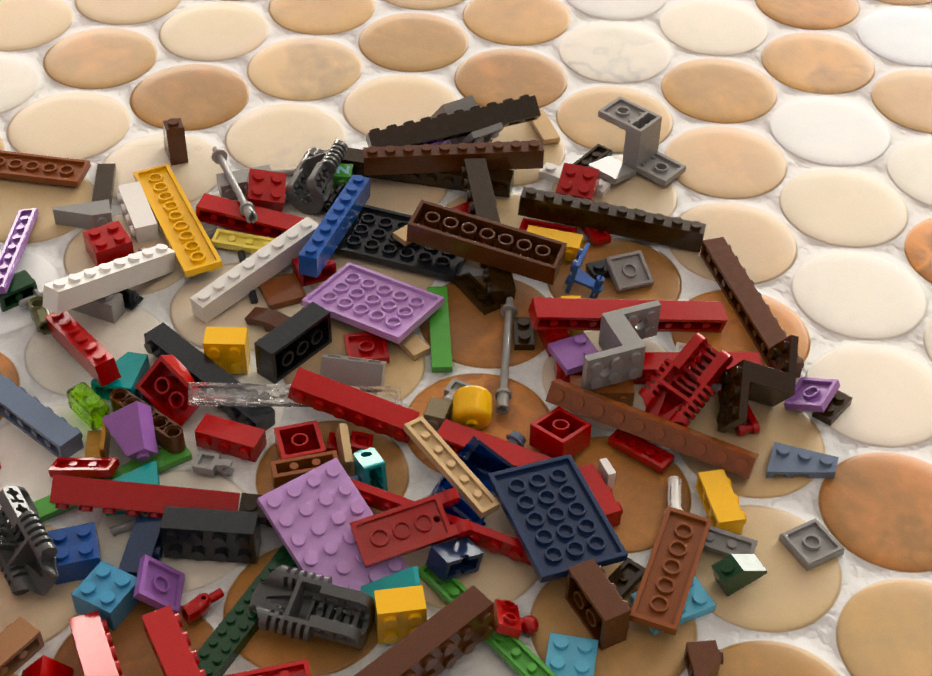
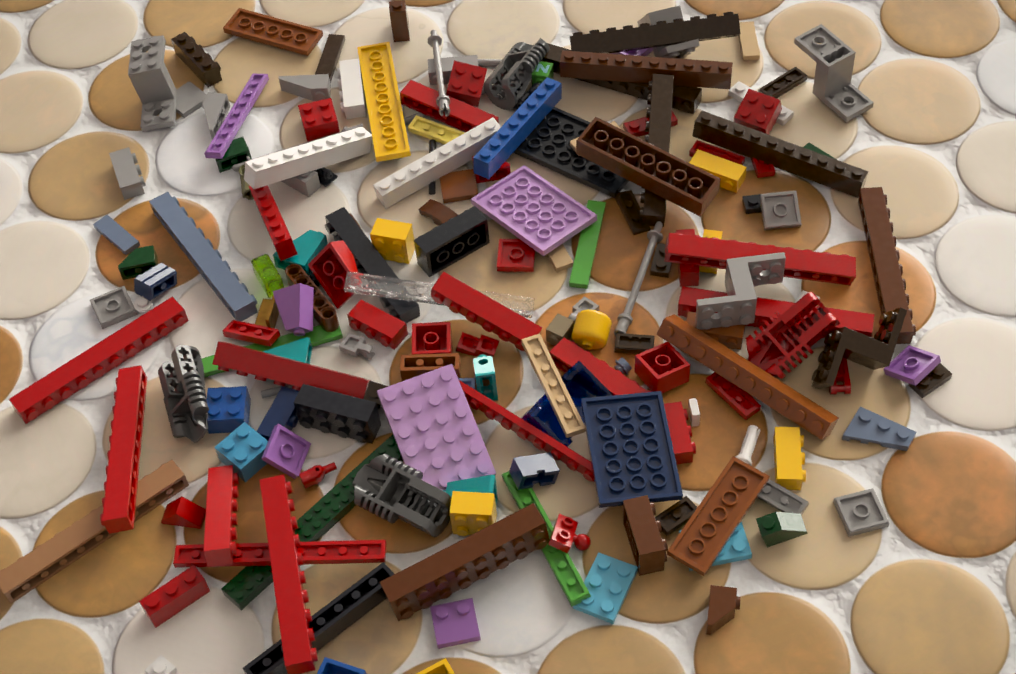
camera: 20 degrees right, 10 degrees up
(344, 446) = (469, 350): tan tile -> none
(353, 370) = (496, 277): light grey brick -> none
(407, 528) = (498, 438): red hinge -> none
(519, 416) = (633, 343): none -> dark brown plate
(570, 352) = (697, 287): medium lavender plate -> none
(581, 277) = (730, 211): blue plate -> none
(613, 170) = (799, 97): tile -> none

